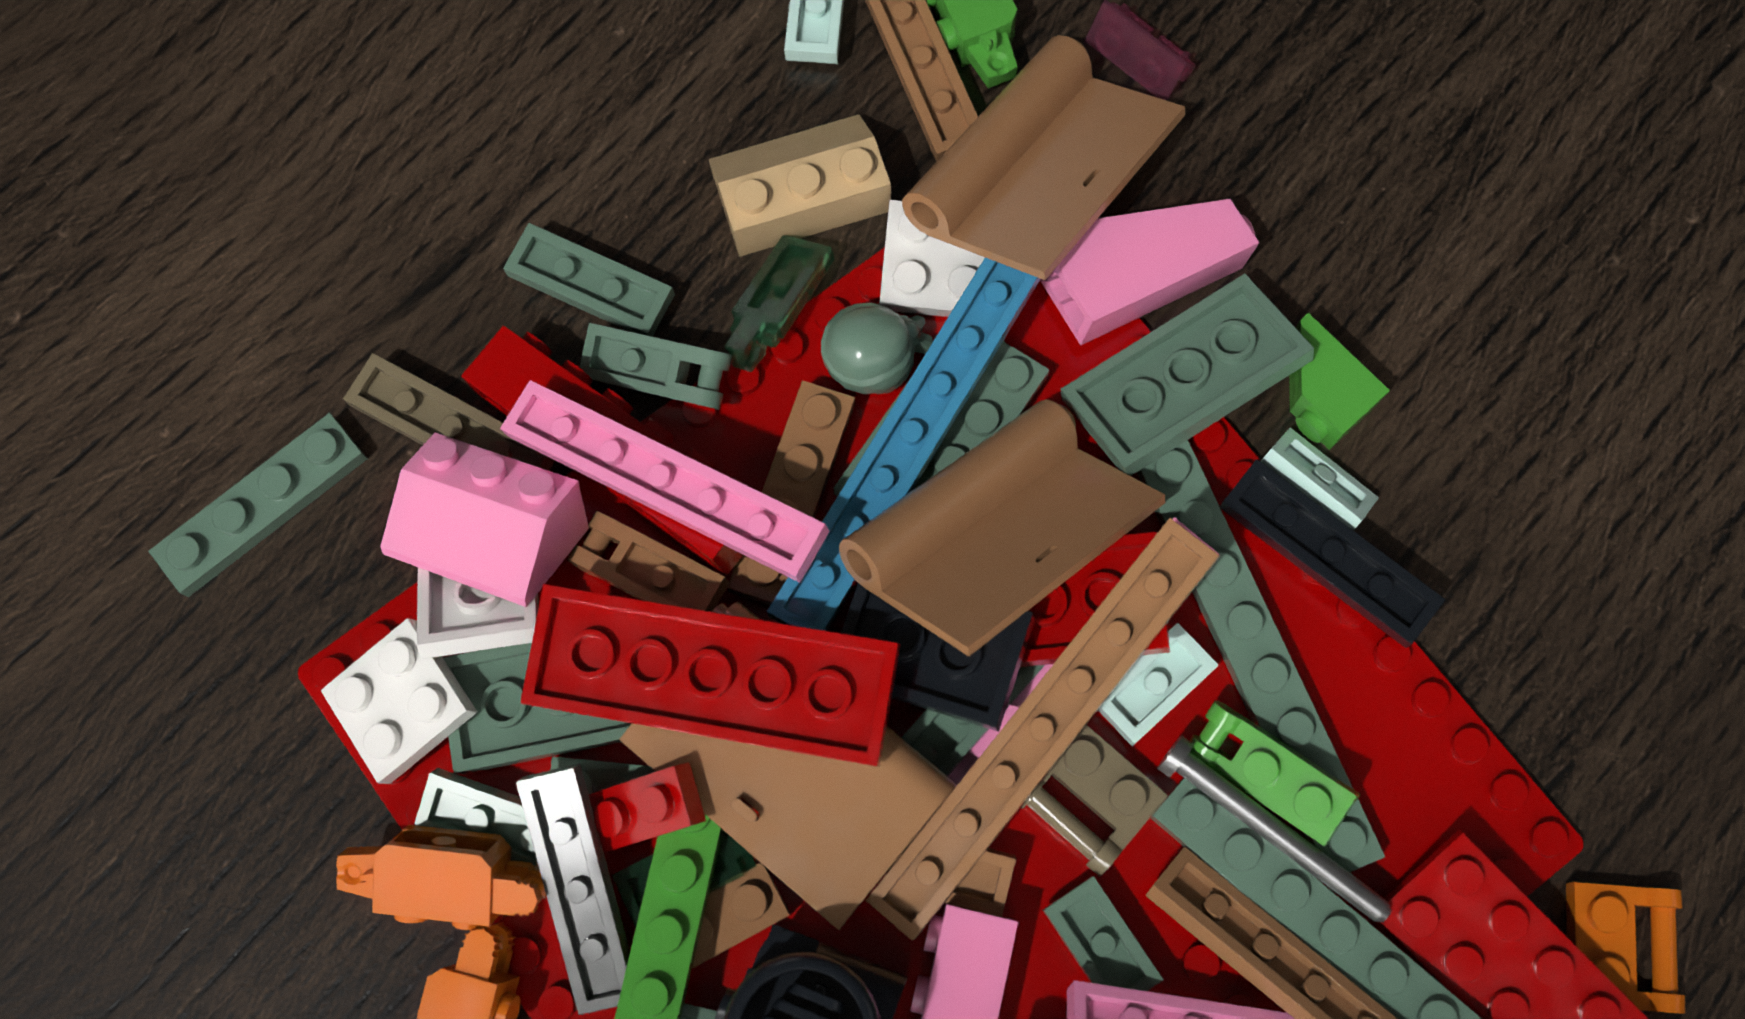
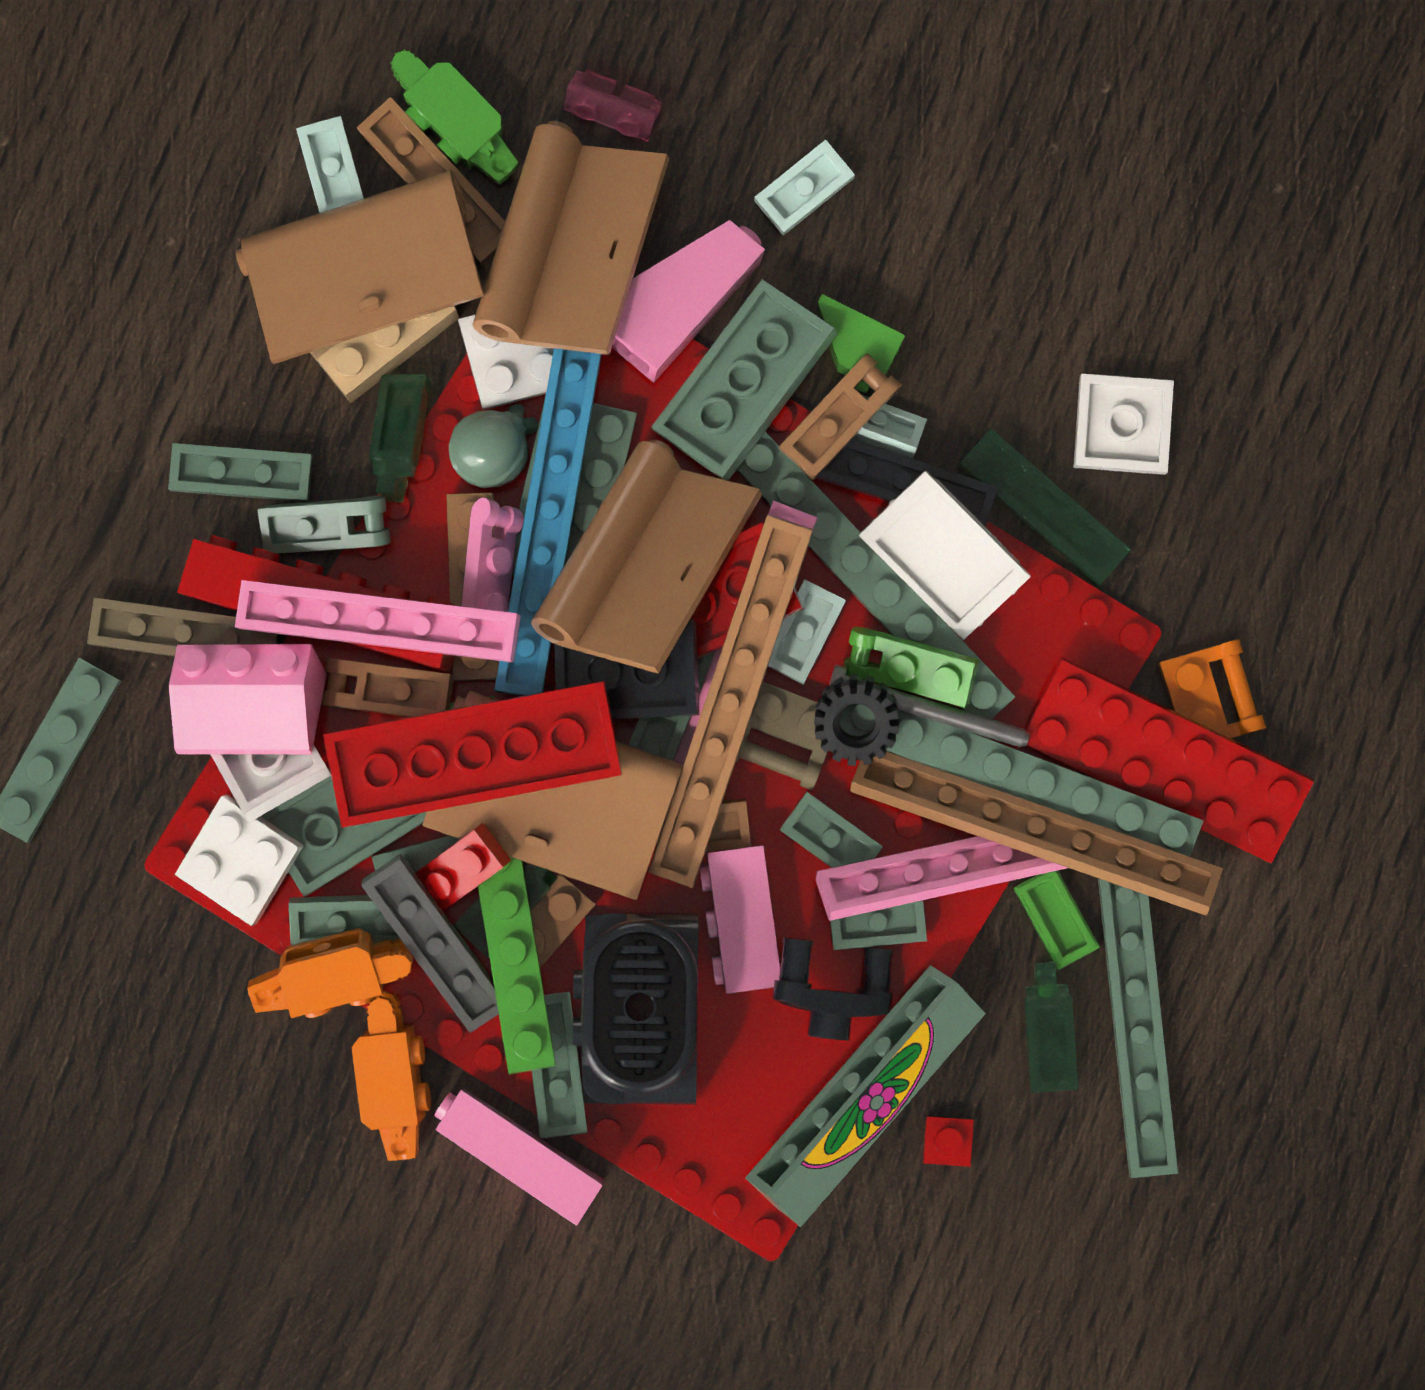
camera: 30 degrees left, 10 degrees up
(806, 106) = (361, 267): none -> medium nougat door
(822, 464) = (490, 558): none -> bright pink plate
(1179, 846) = (856, 692): none -> black tyre
(1284, 450) = (838, 417): none -> medium nougat plate
(1322, 201) = (804, 187): none -> light aqua plate
(1356, 655) = (945, 554): none -> white piece
(1491, 651) = (1045, 507): none -> clear green plate
(1612, 585) = (1123, 424): none -> white plate

